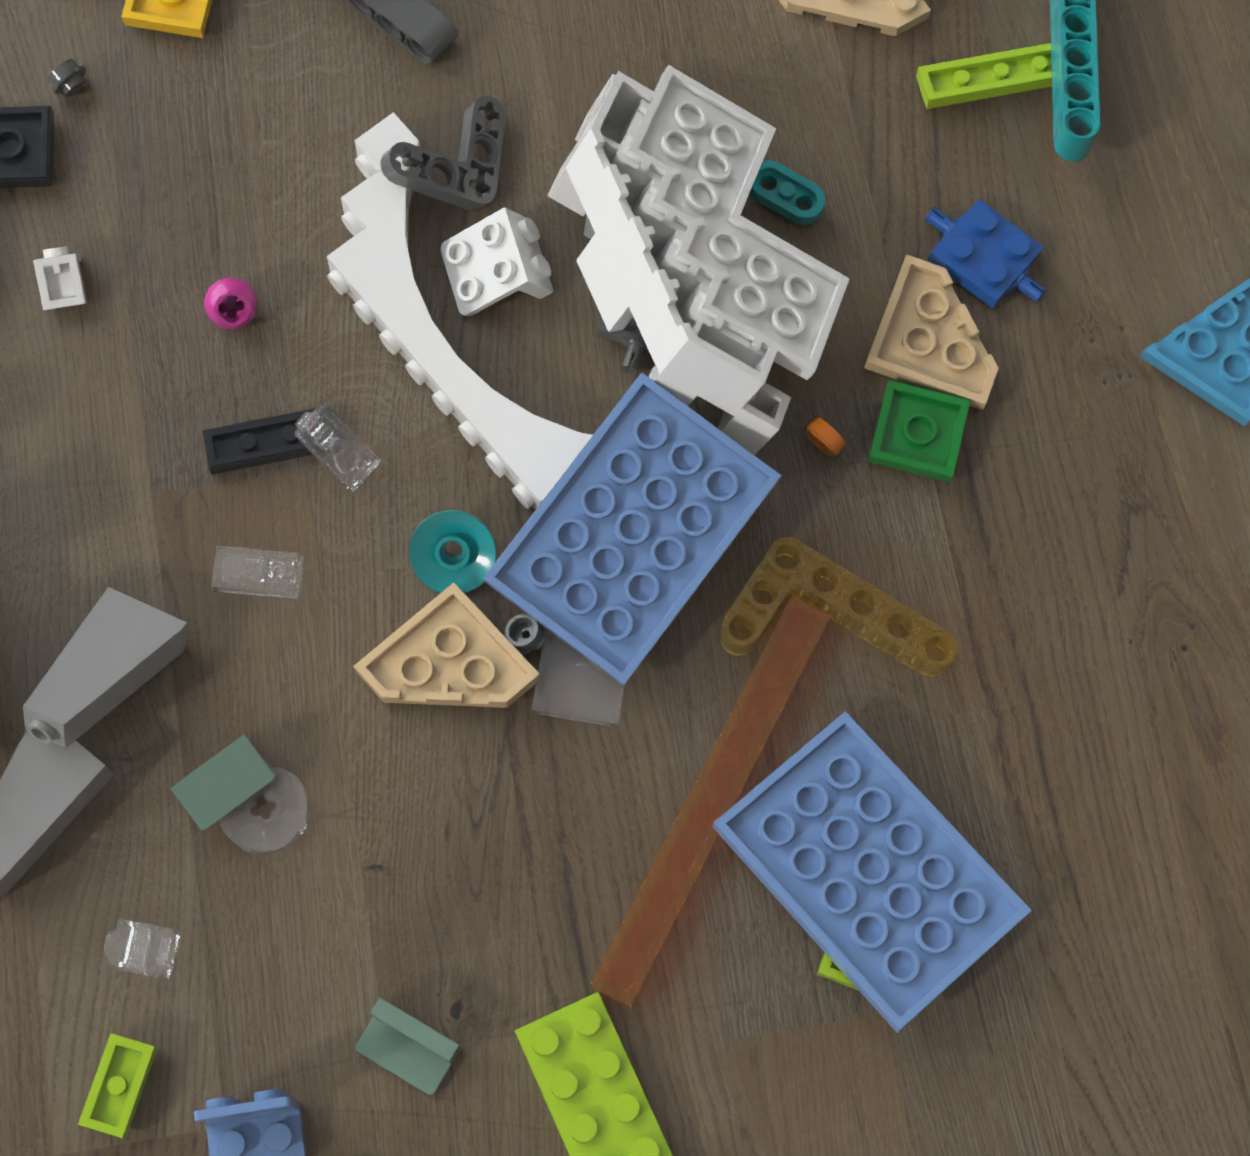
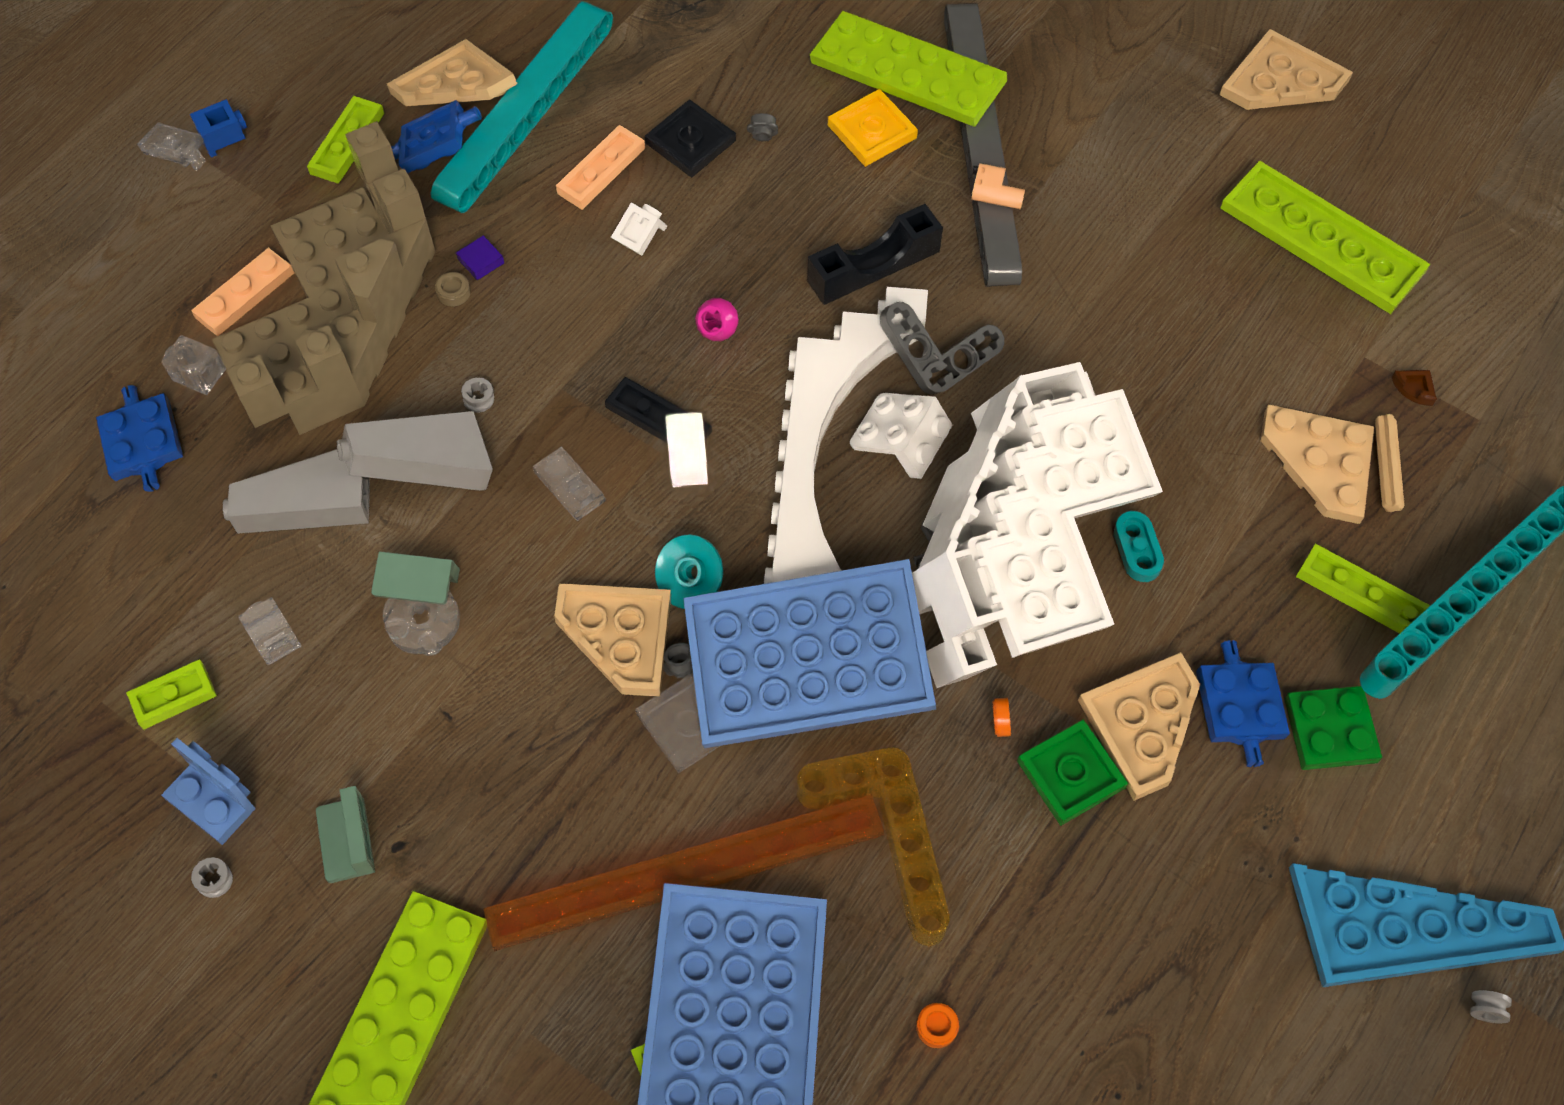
camera: 50 degrees right, 10 degrees down
(90, 580) = (484, 387): none -> light grey bush
(299, 151) = (908, 240): none -> black arch
(1014, 724) = (937, 1025): none -> orange tile
(1067, 212) = (1332, 728): none -> green plate

